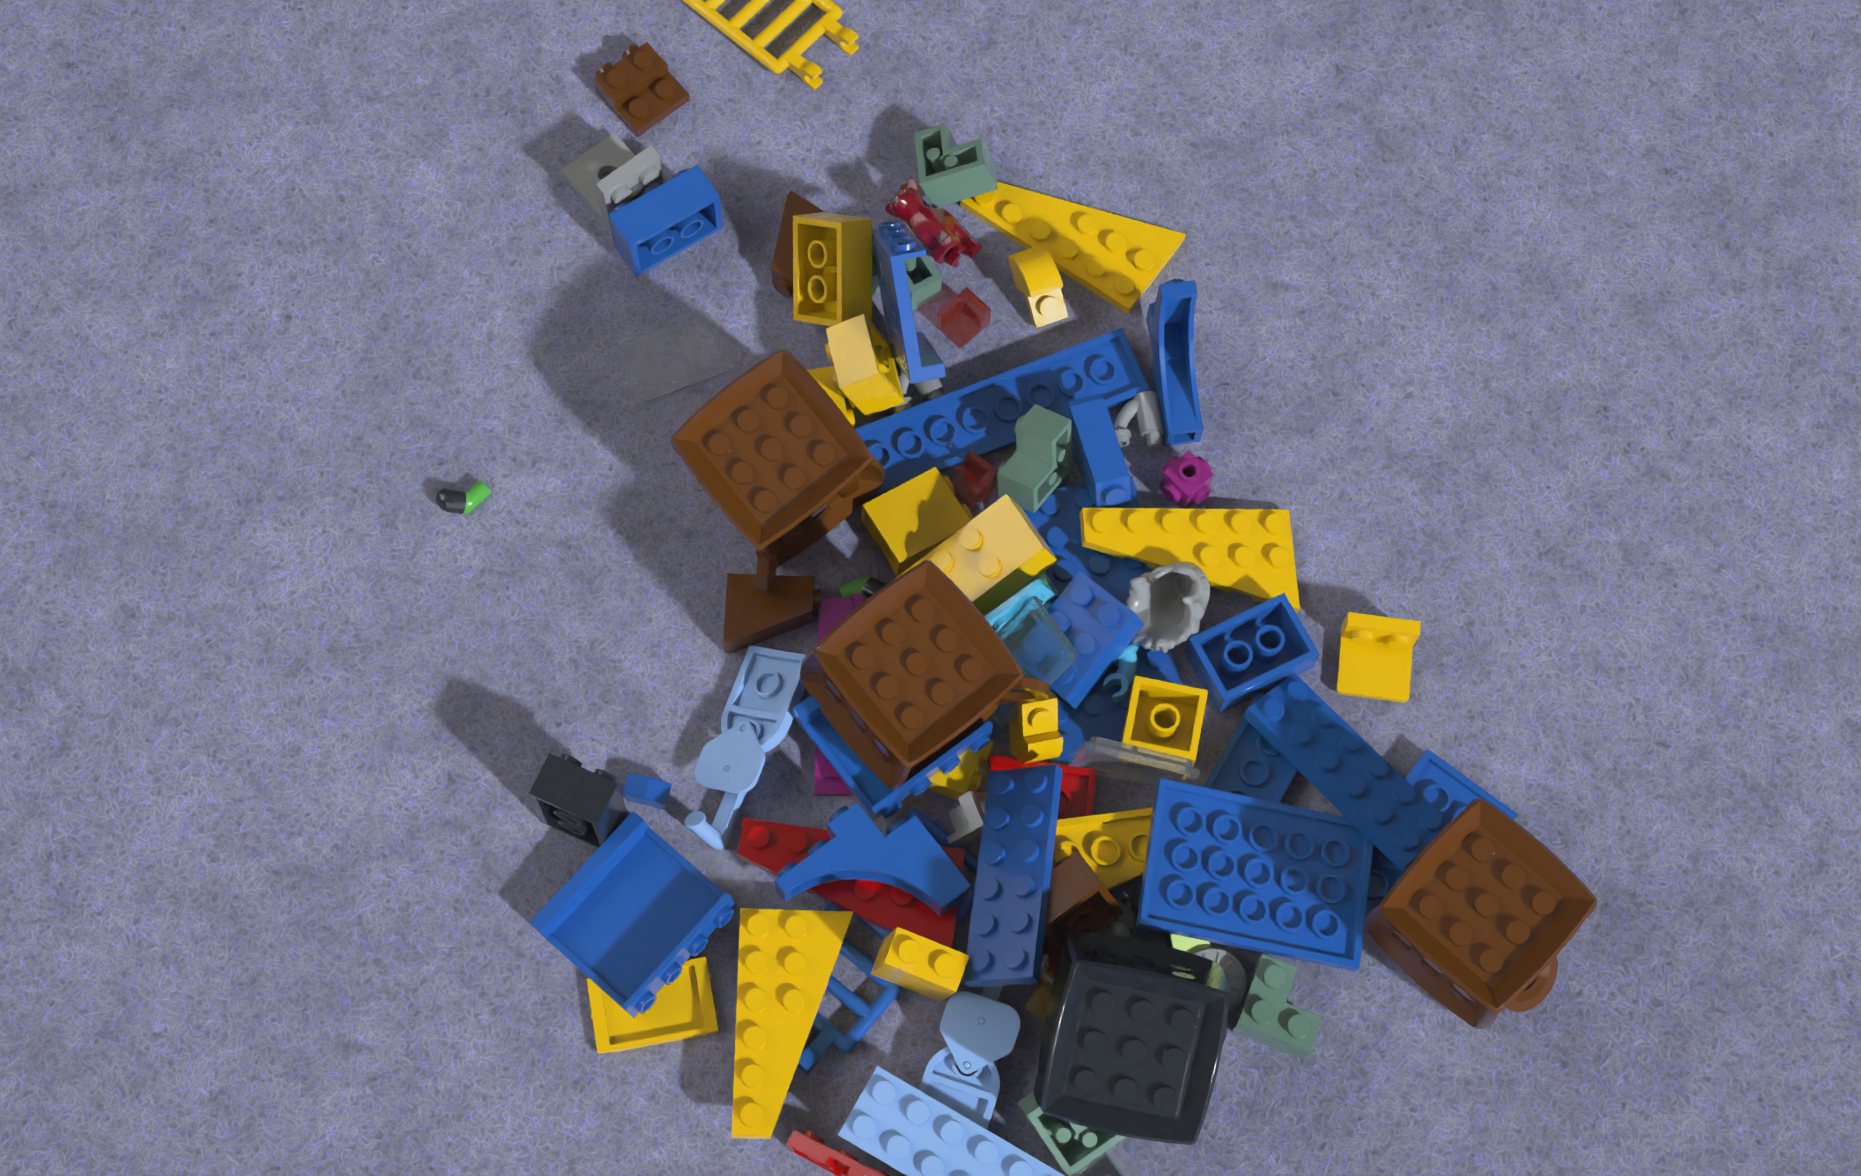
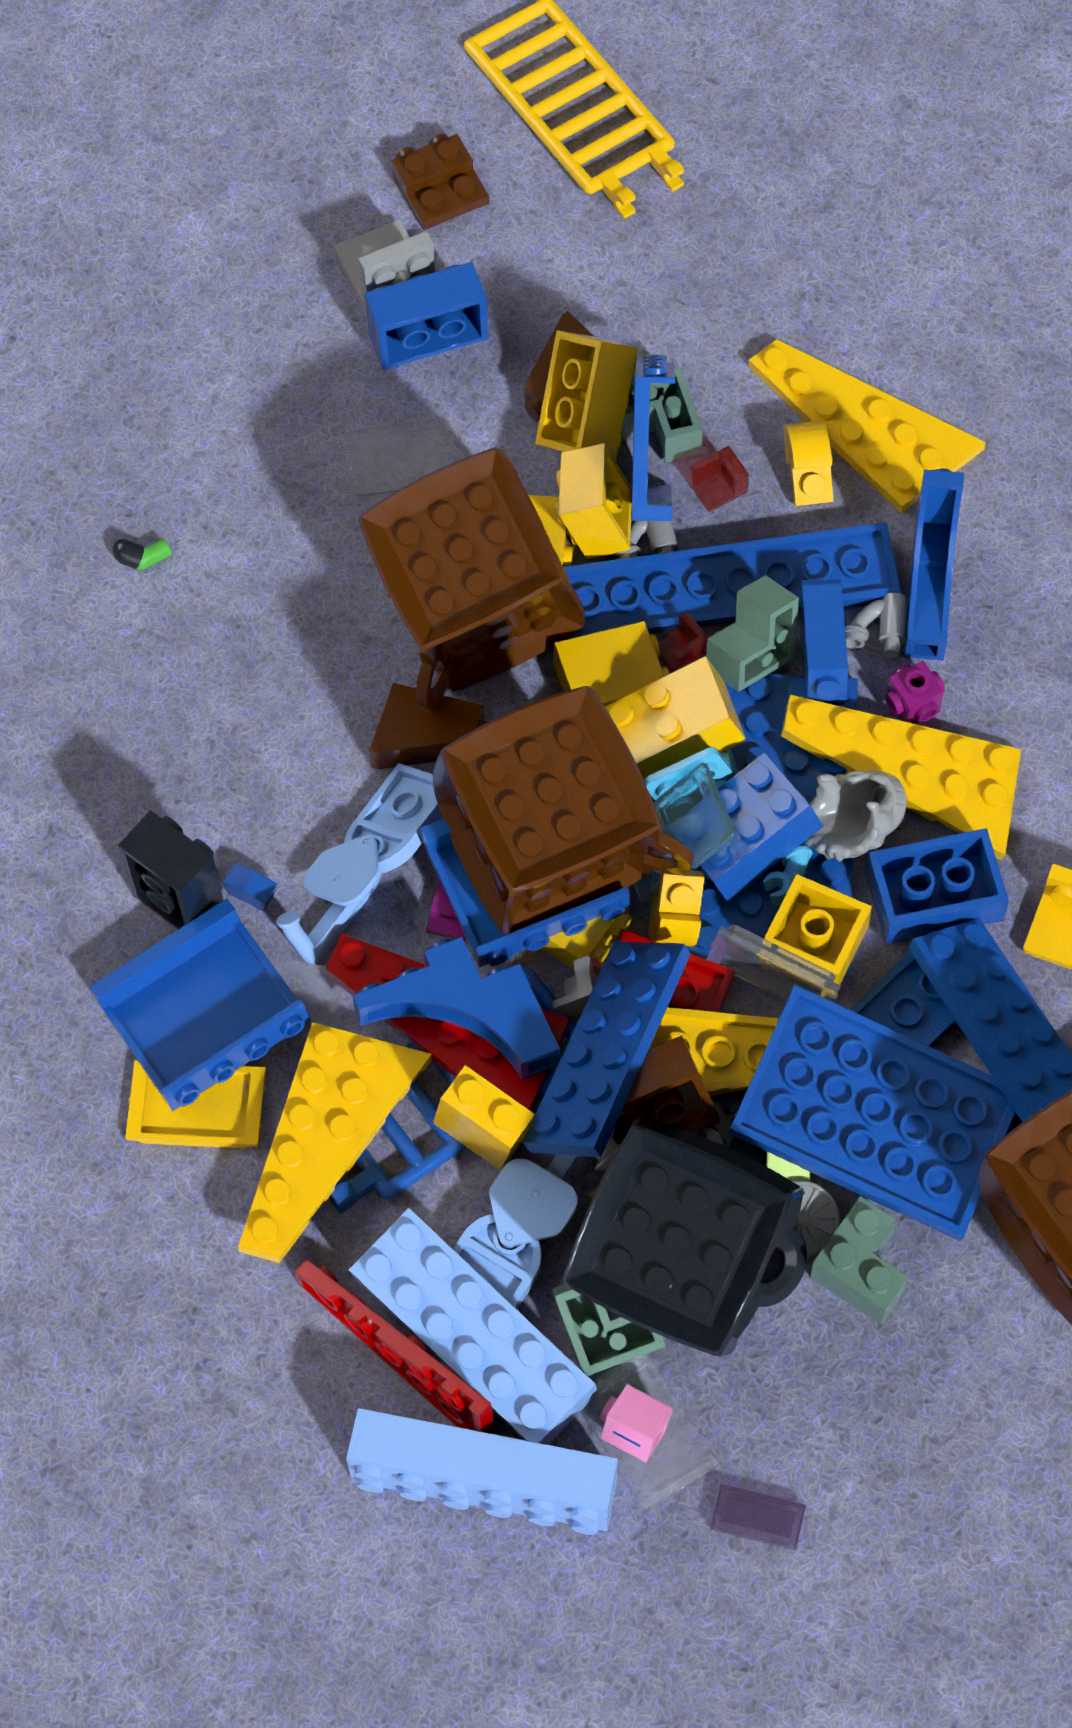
camera: 20 degrees right, 5 degrees down
(932, 226) = (709, 378): dark red animal -> none
(952, 170) = (744, 323): sand green brick -> none

